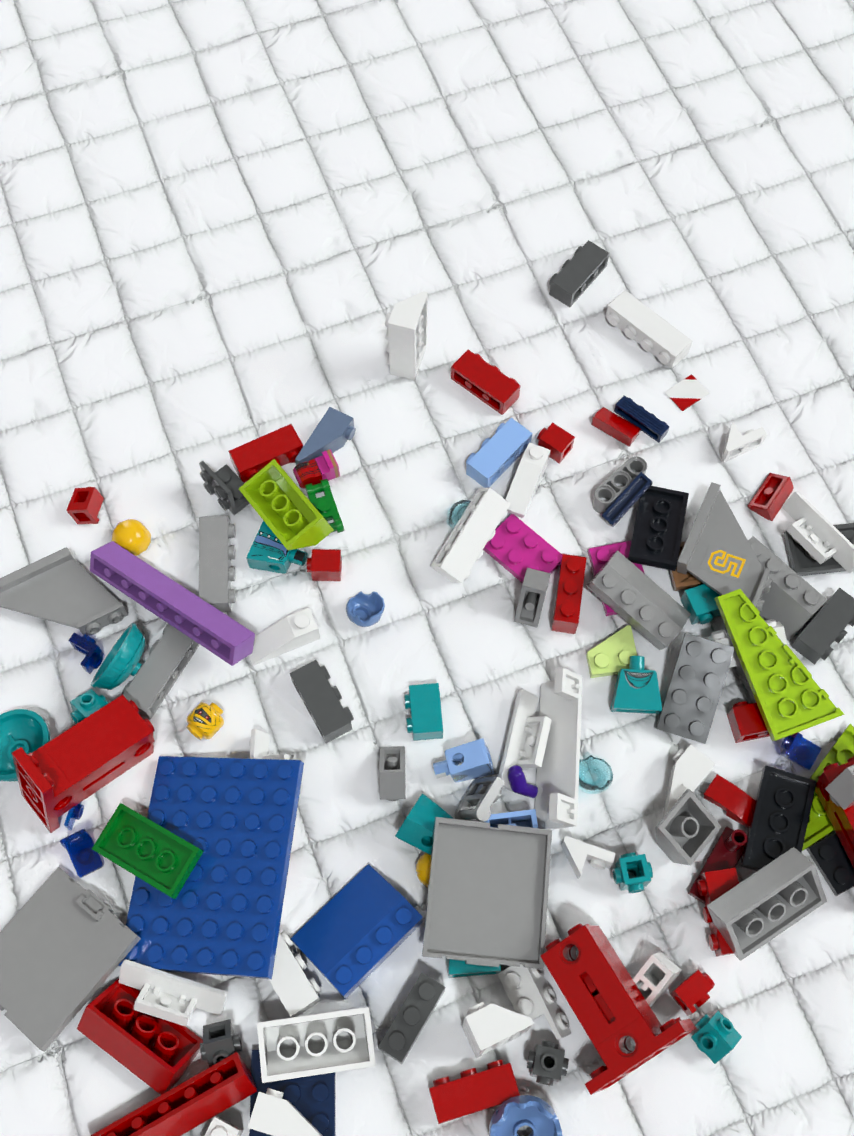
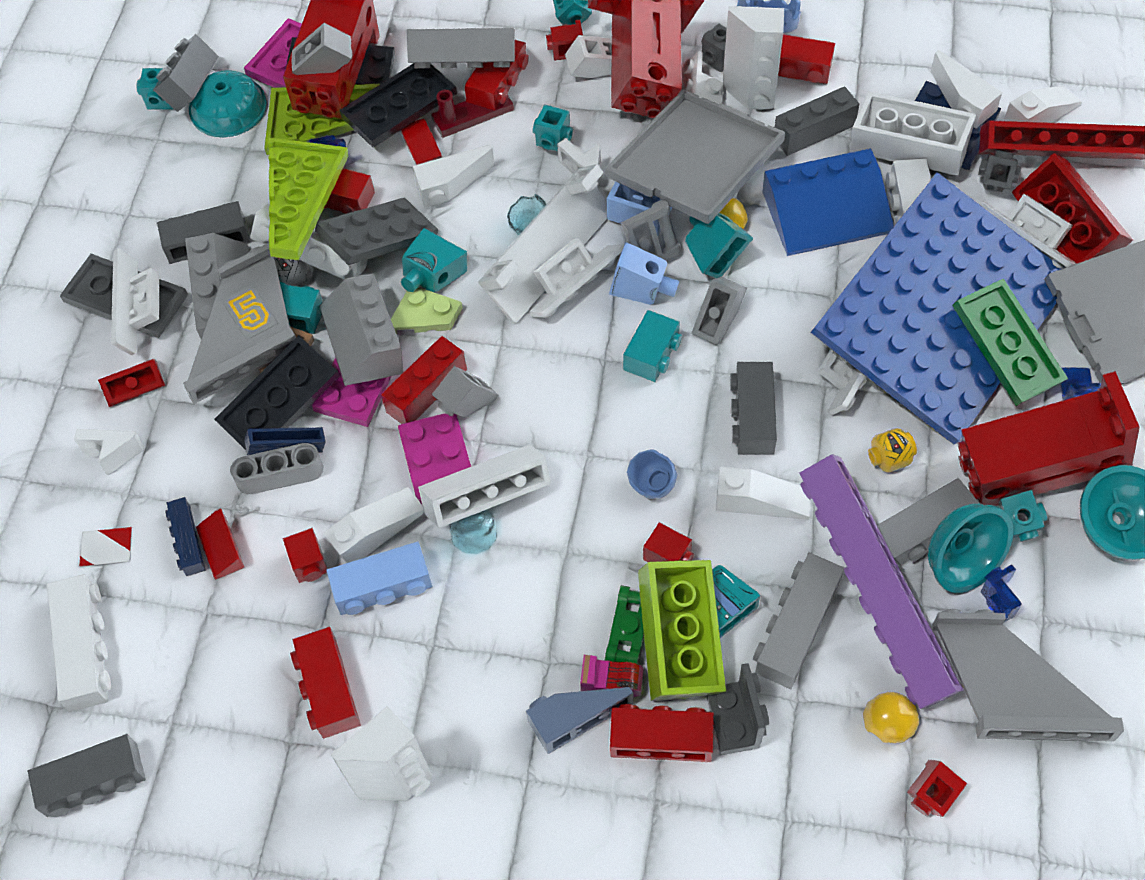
camera: 145 degrees left, 5 degrees down
(518, 782) = (601, 241): dark purple arm -> none
(686, 829) = (483, 128): light grey slope -> none

